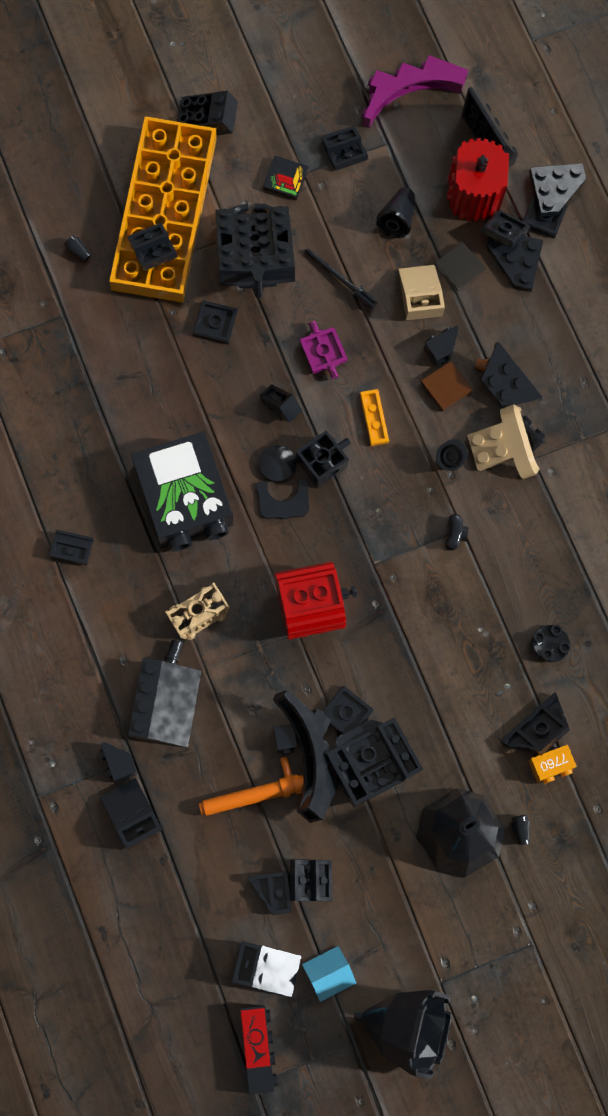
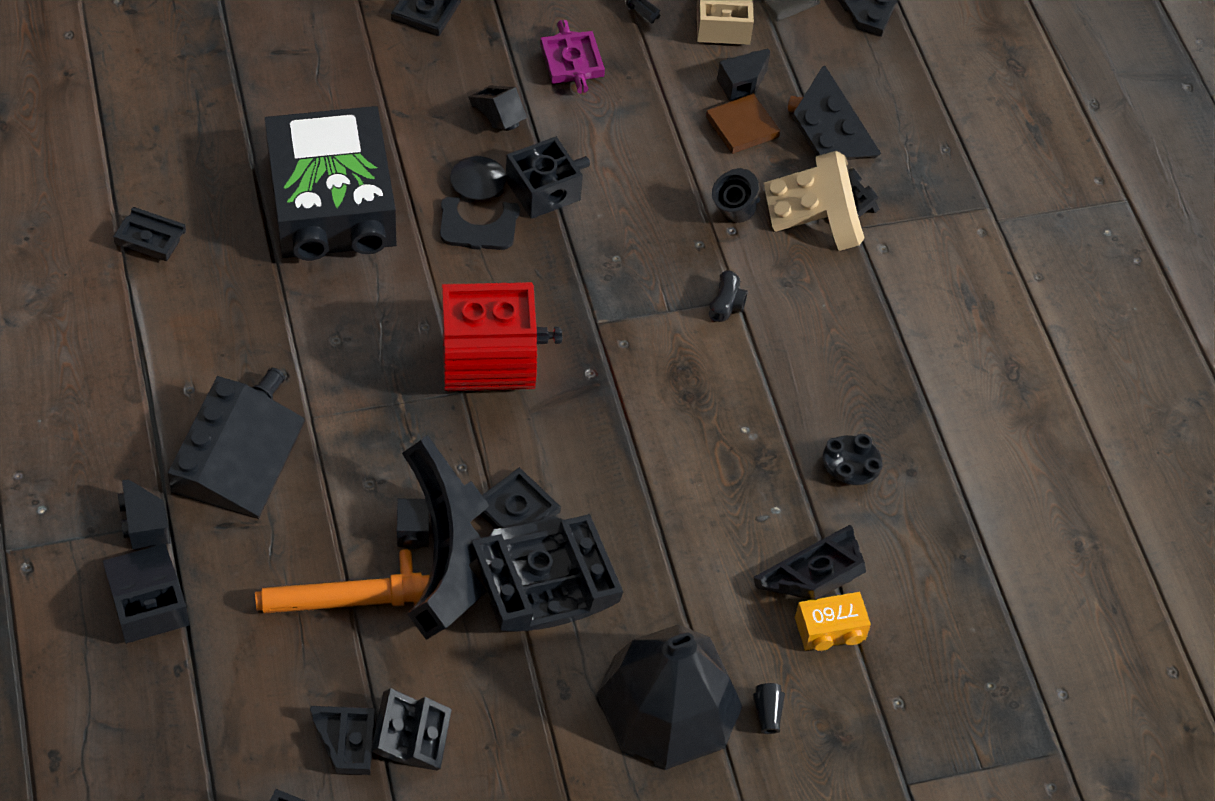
camera: 10 degrees right, 20 degrees down
(201, 620) = (320, 336): tan piece -> none
(374, 417) = (630, 146): light orange tile -> none

